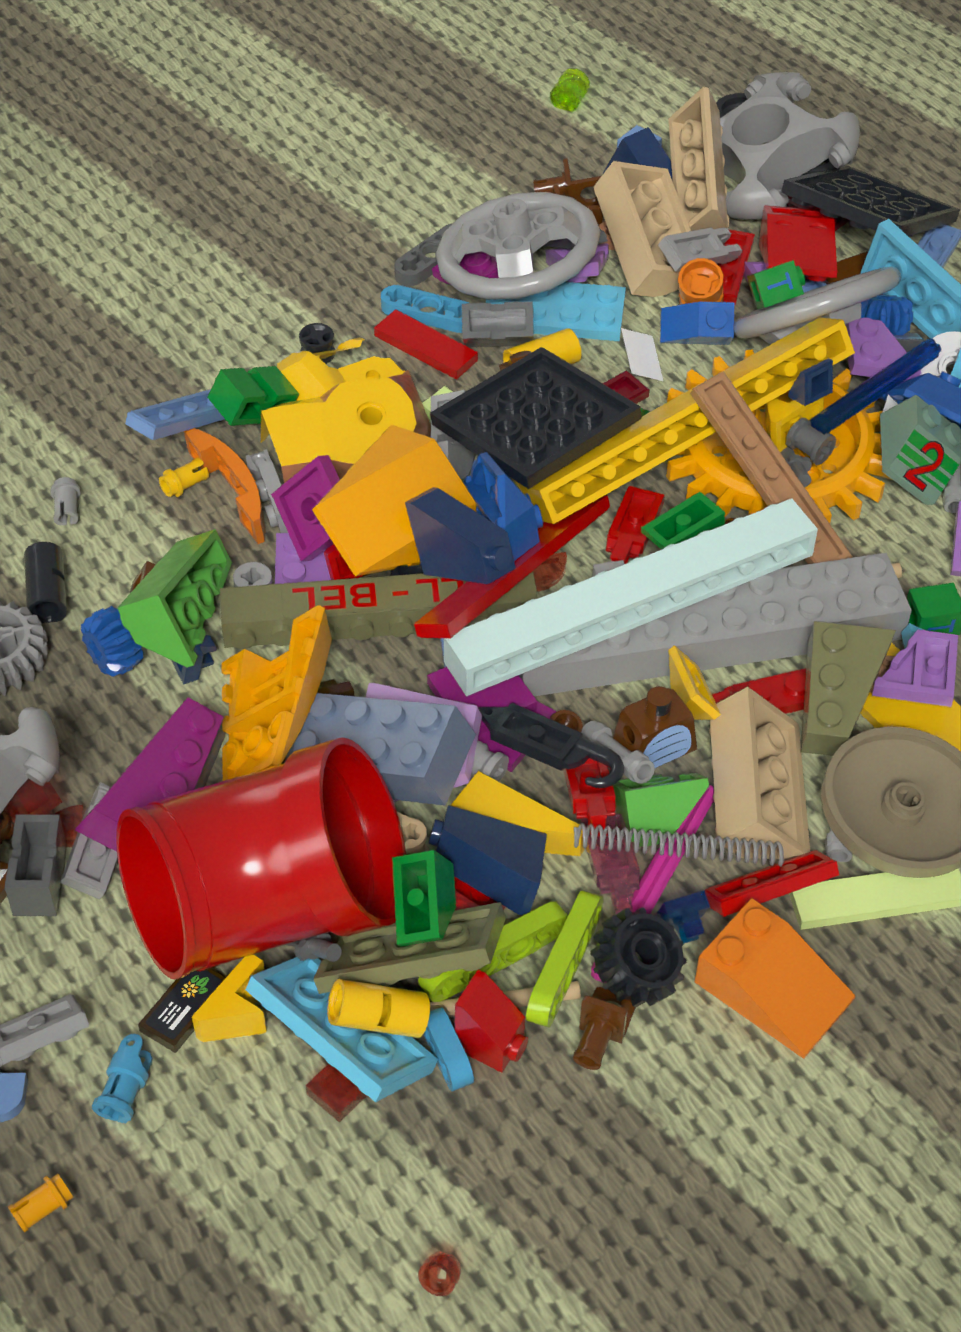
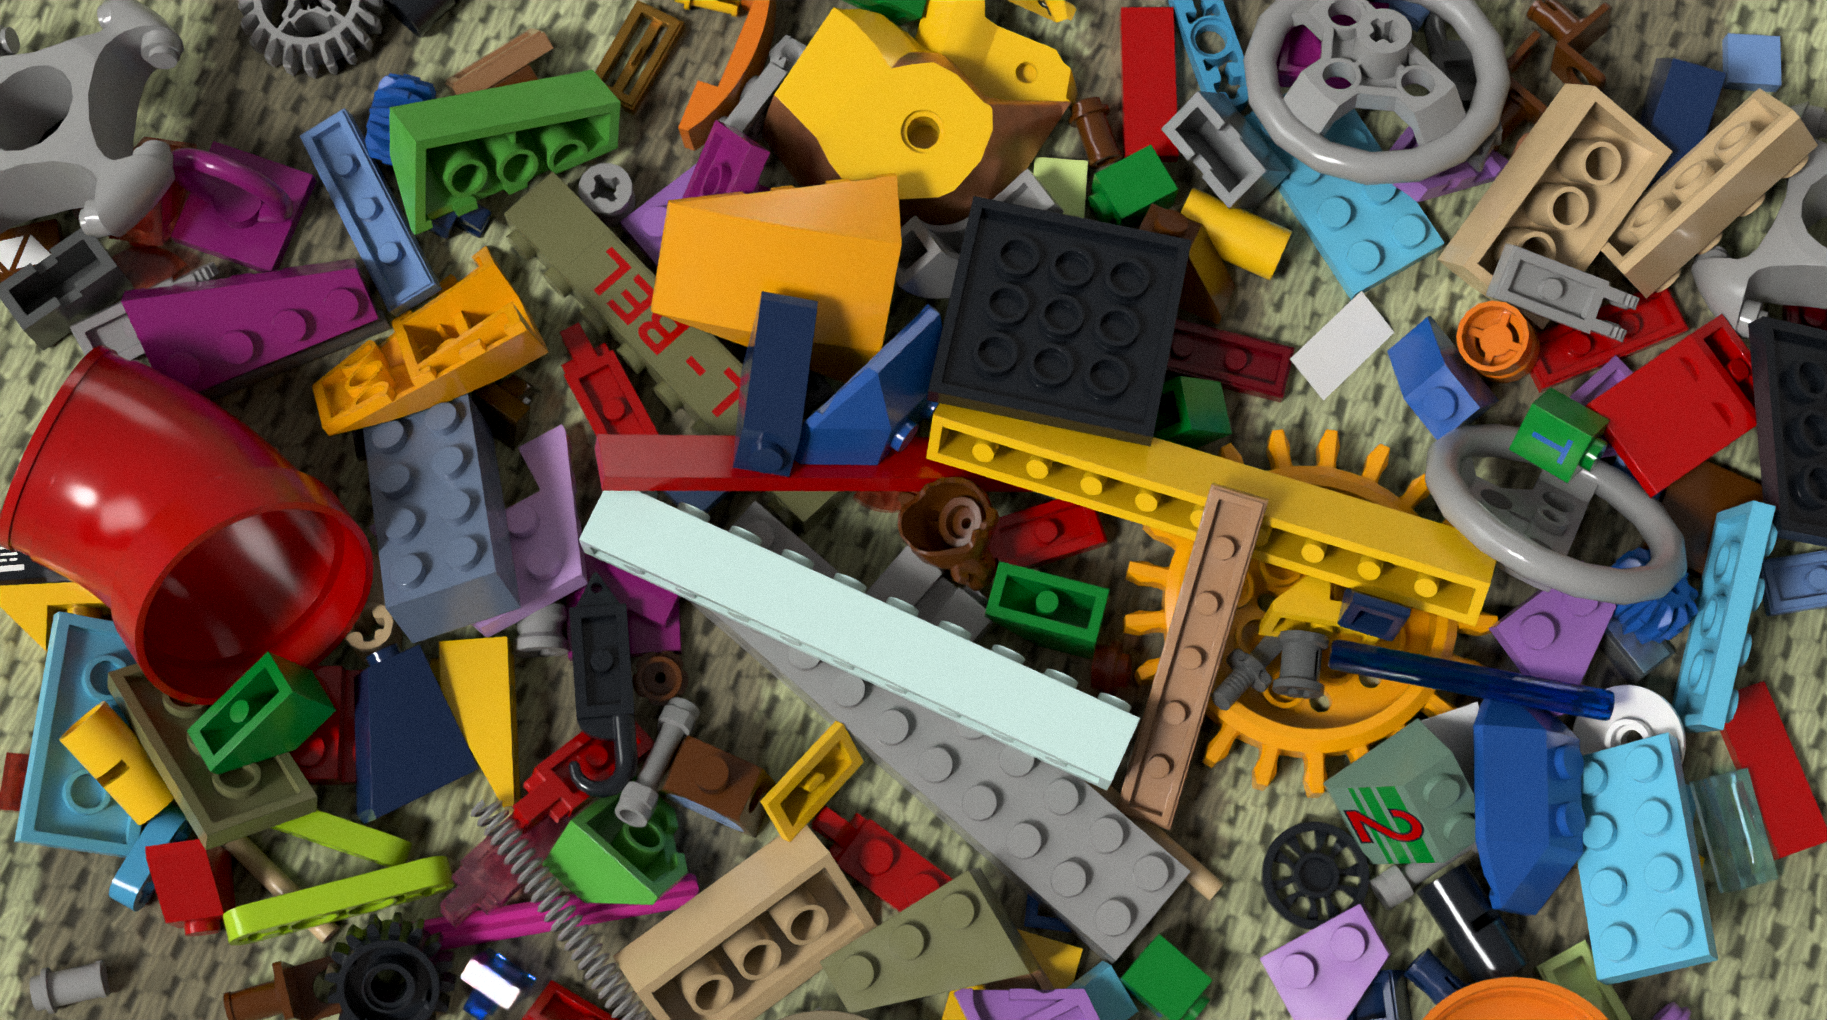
camera: 50 degrees right, 25 degrees up
(85, 746) = (239, 205): none -> magenta tile
(126, 575) = (500, 63): none -> medium nougat tile
(139, 694) = (370, 213): none -> medium blue tile
(172, 509) = (658, 19): none -> pearl gold tile
(378, 656) = (603, 387): none -> red hinge
(431, 375) = (1095, 132): none -> reddish brown pin
(478, 366) = (1129, 187): none -> green brick
(486, 1160) = (68, 986): none -> light grey pin
(587, 538) = (939, 530): none -> reddish brown hair
(922, 526) = (1314, 873): none -> black wheel

